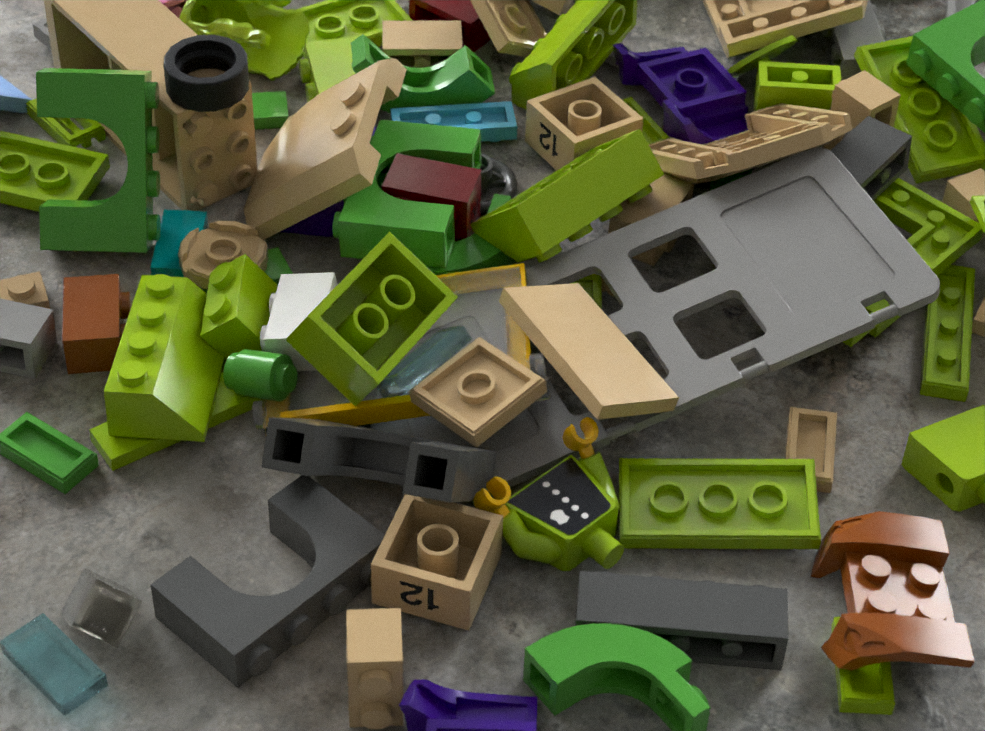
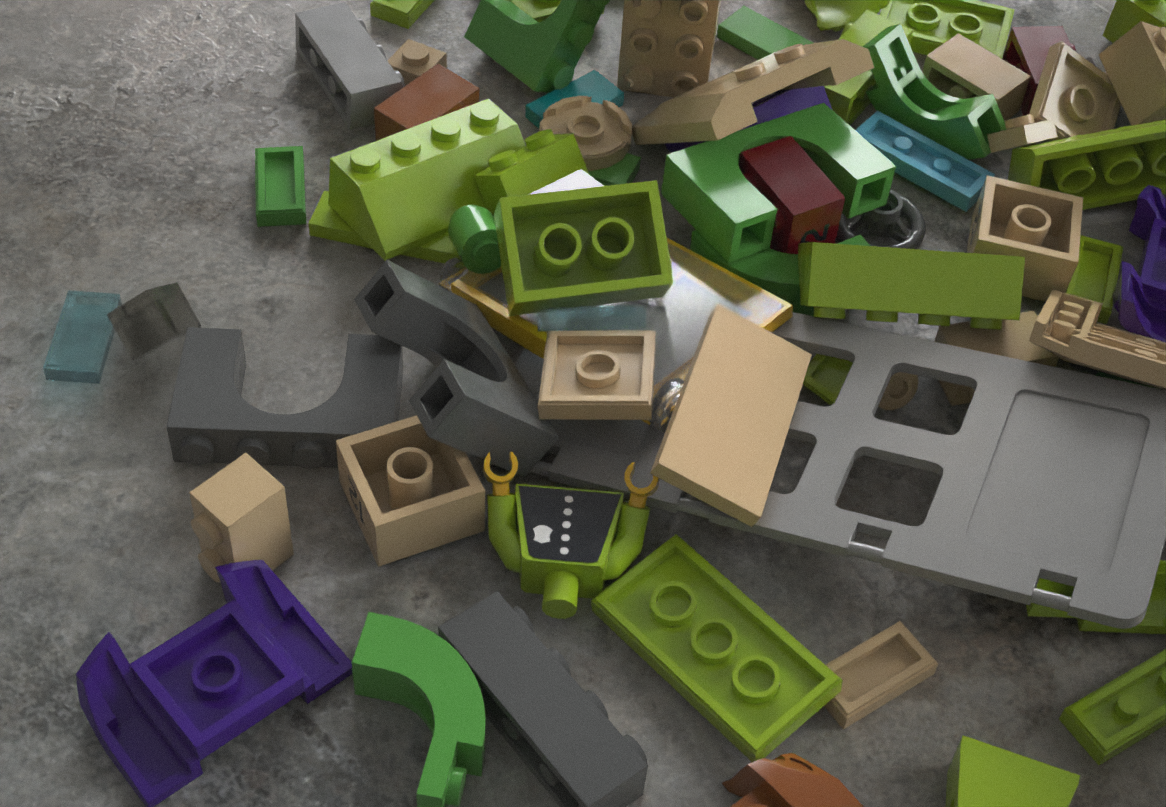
camera: 45 degrees right, 5 degrees up
(506, 61) = (1021, 132): none -> tan plate

